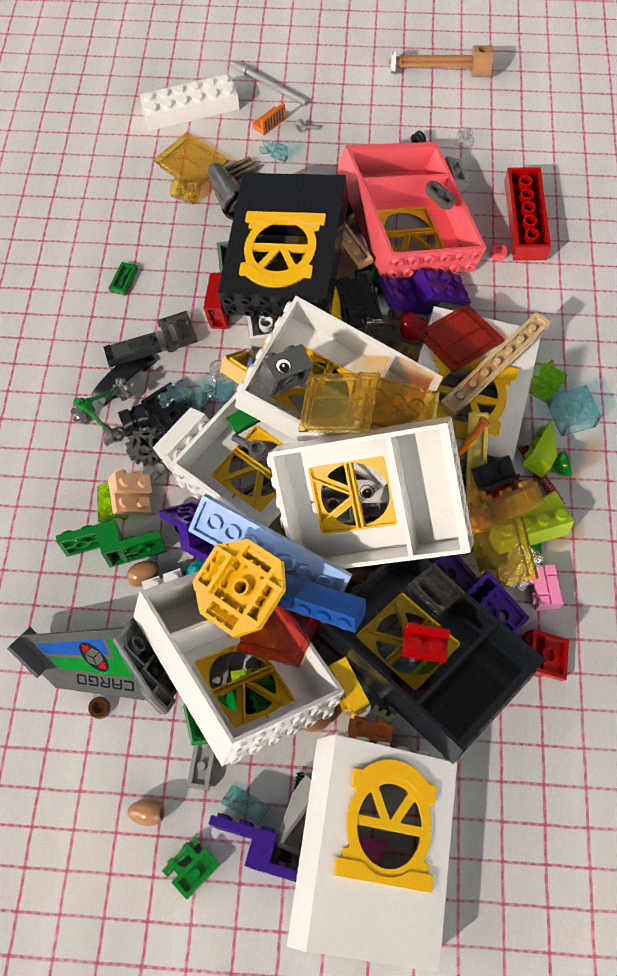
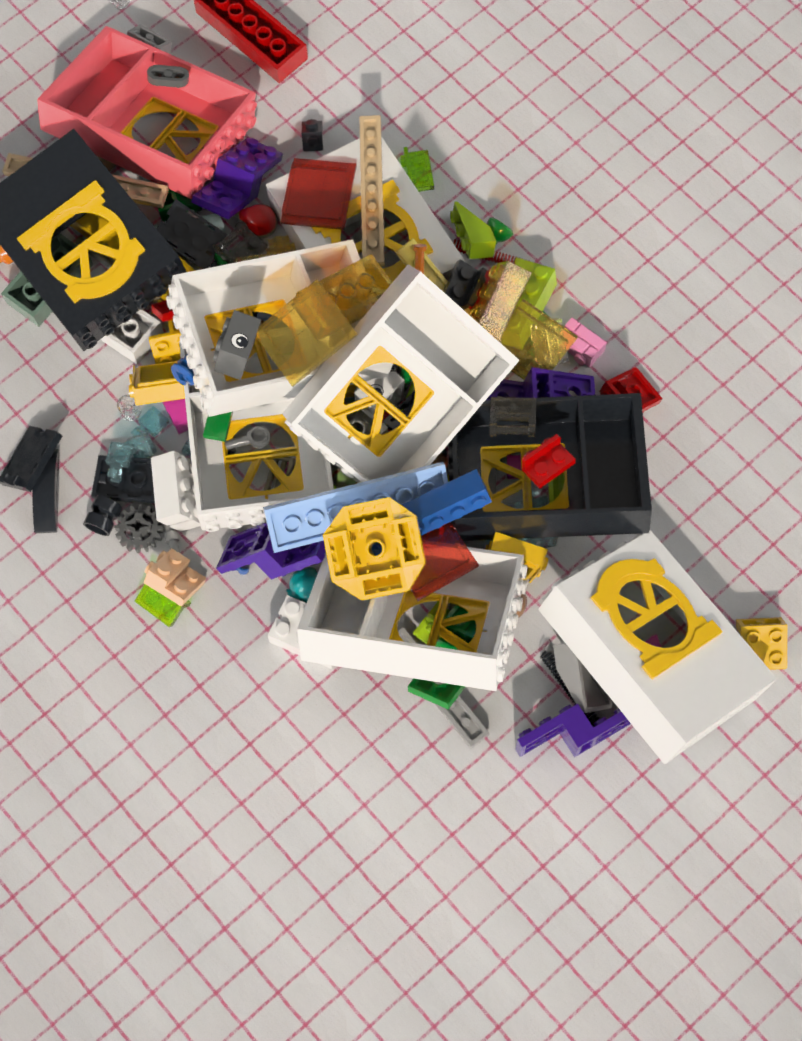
camera: 45 degrees left, 5 degrees up
(85, 409) = (48, 553): dark grey plant -> none
(98, 662) = (309, 723): dark grey piece -> none
(99, 707) = (337, 763): reddish brown tile -> none
(111, 543) = (205, 630): green bracket -> none
(141, 572) = (256, 630): medium nougat animal -> none
(147, 812) = (461, 794): medium nougat animal -> none
(183, 330) = (53, 400): clear smoke plate -> none
(195, 872) = (543, 797): green plate -> none
(212, 306) = (62, 344): red window -> none
(245, 805) = (526, 716): clear light blue slope -> none
(374, 731) = (571, 561): orange plate -> none
(384, 713) = (560, 548): olive tile -> none
(418, 137) = (75, 34): black bush -> none
(465, 930) = (767, 639): none -> yellow bracket
(499, 252) = (260, 85): coral tile -> none
(500, 305) = (312, 135): none -> black bracket
(574, 410) = (463, 176): clear light blue brick -> none

